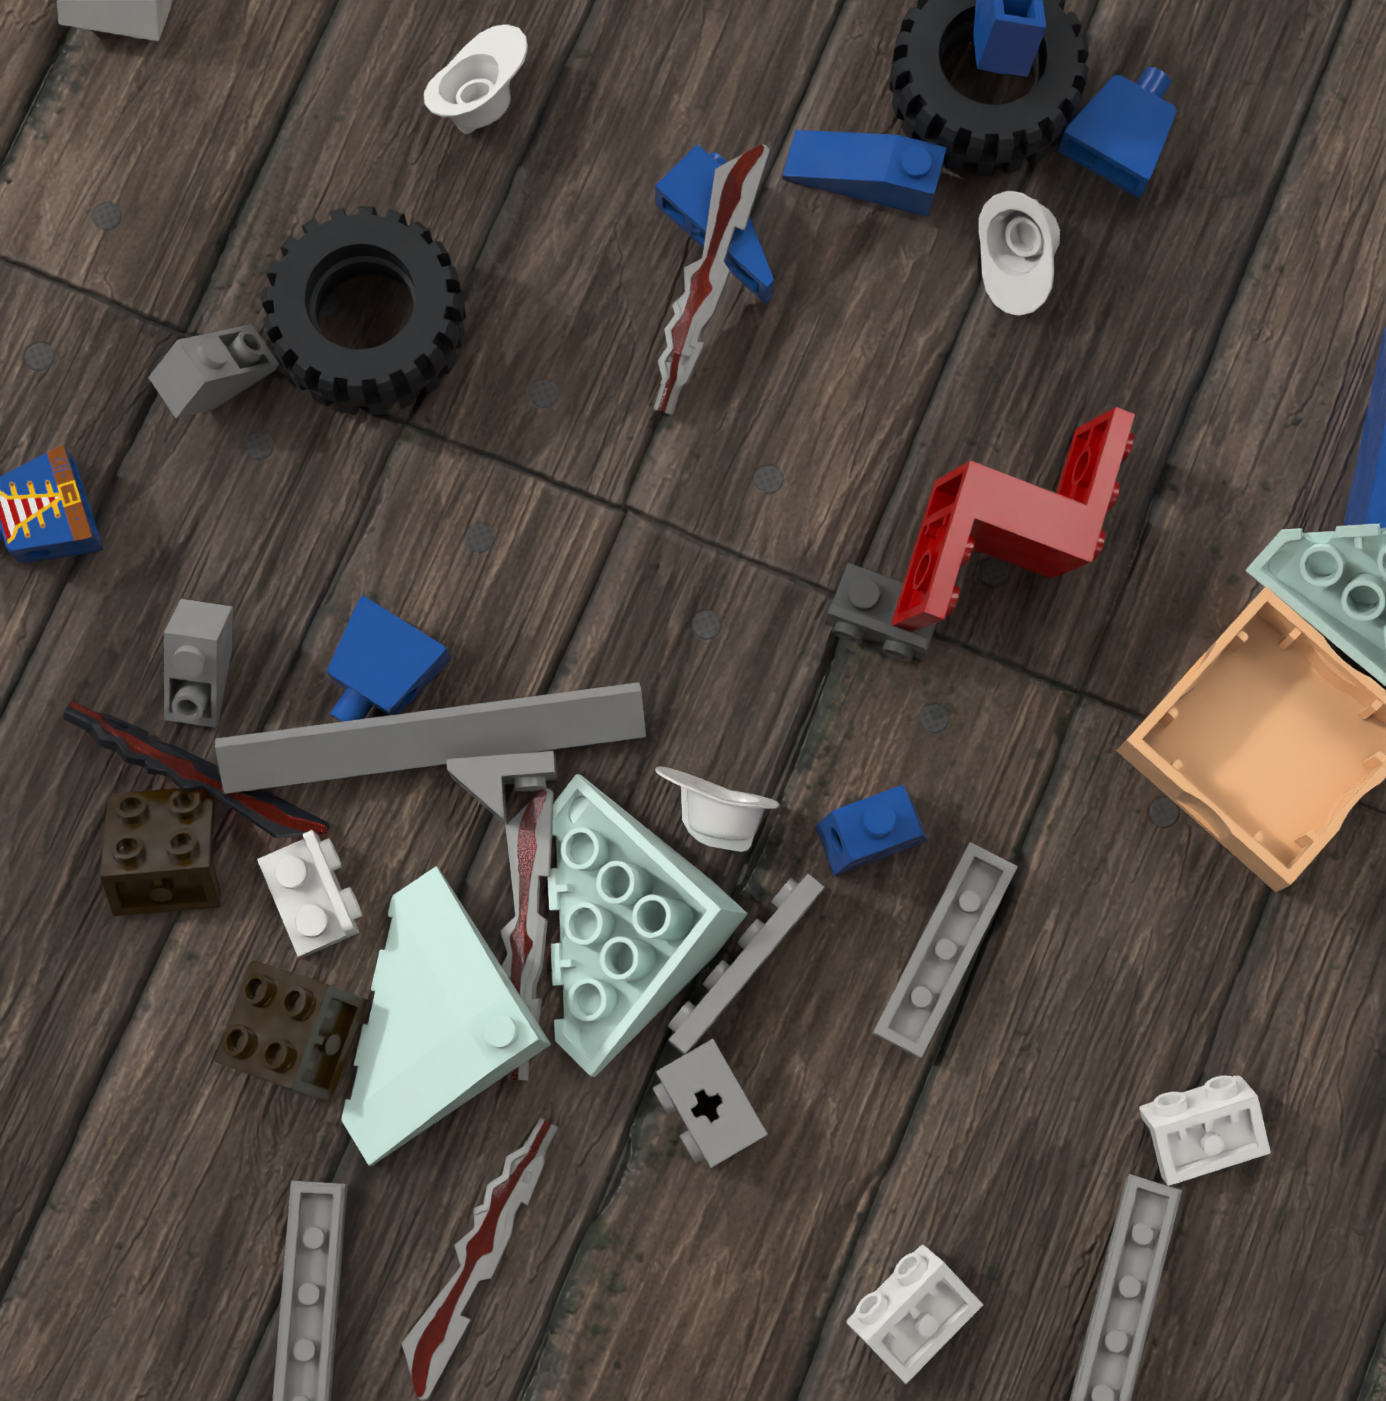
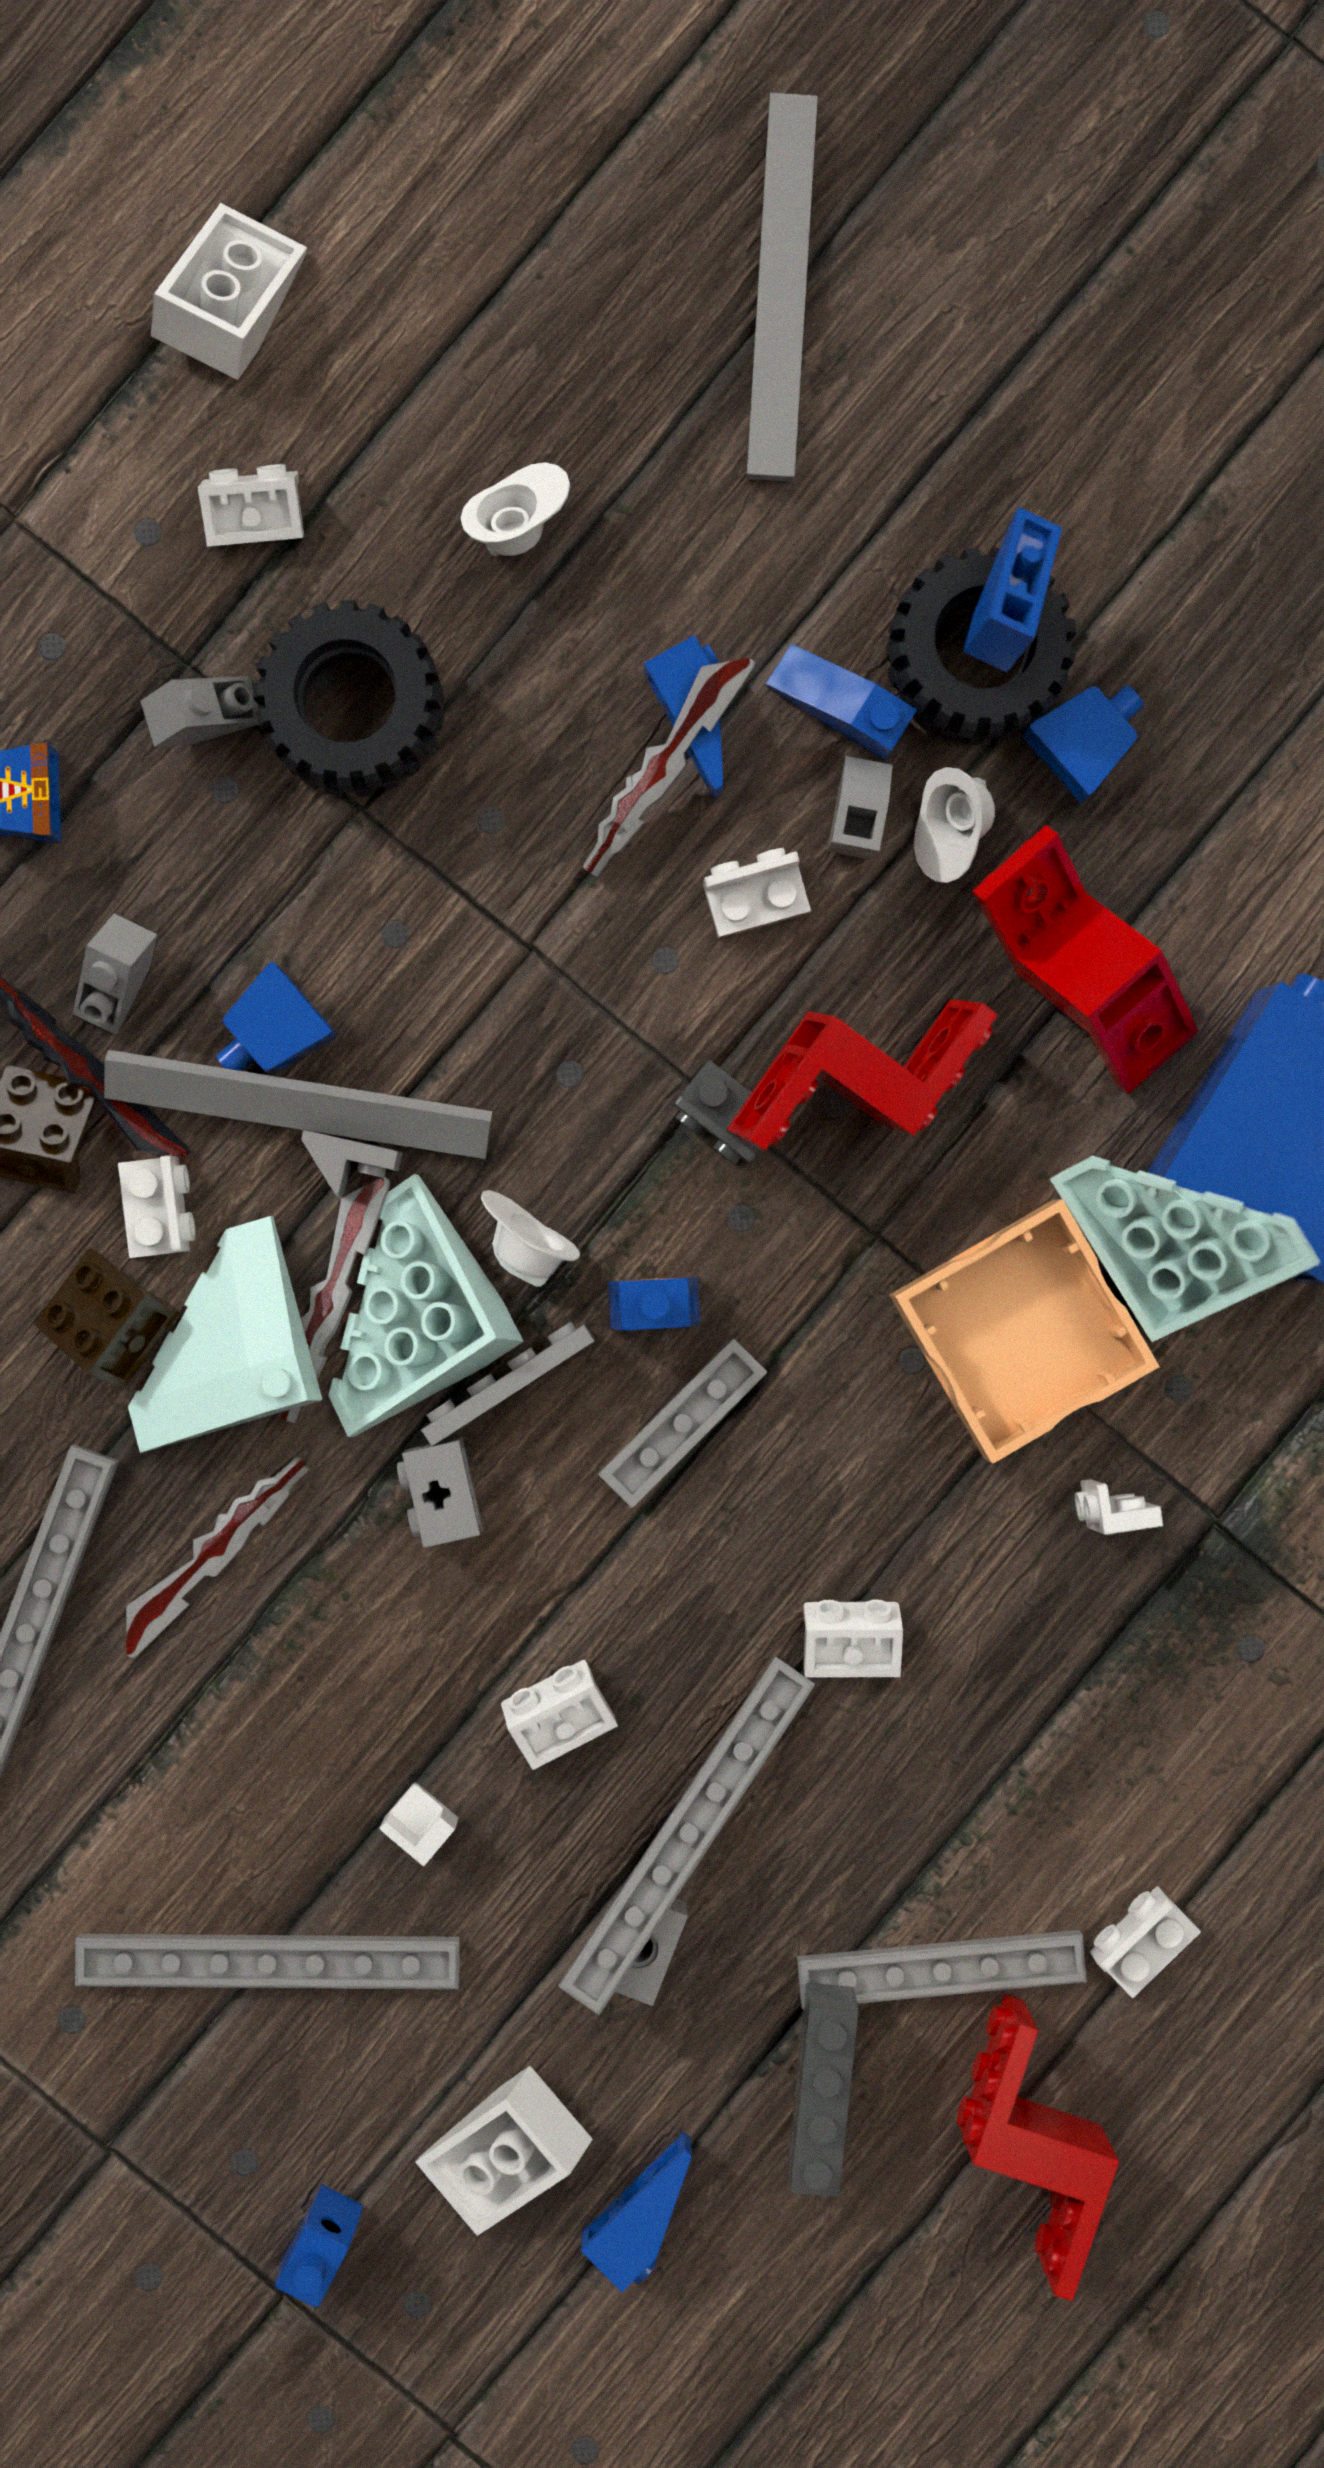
camera: 15 degrees right, 10 degrees up
(207, 158) = (251, 506): none -> white bracket
(840, 381) = (756, 893): none -> white bracket
(921, 266) = (861, 808): none -> light grey slope
(1205, 339) = (1086, 960): none -> red bracket

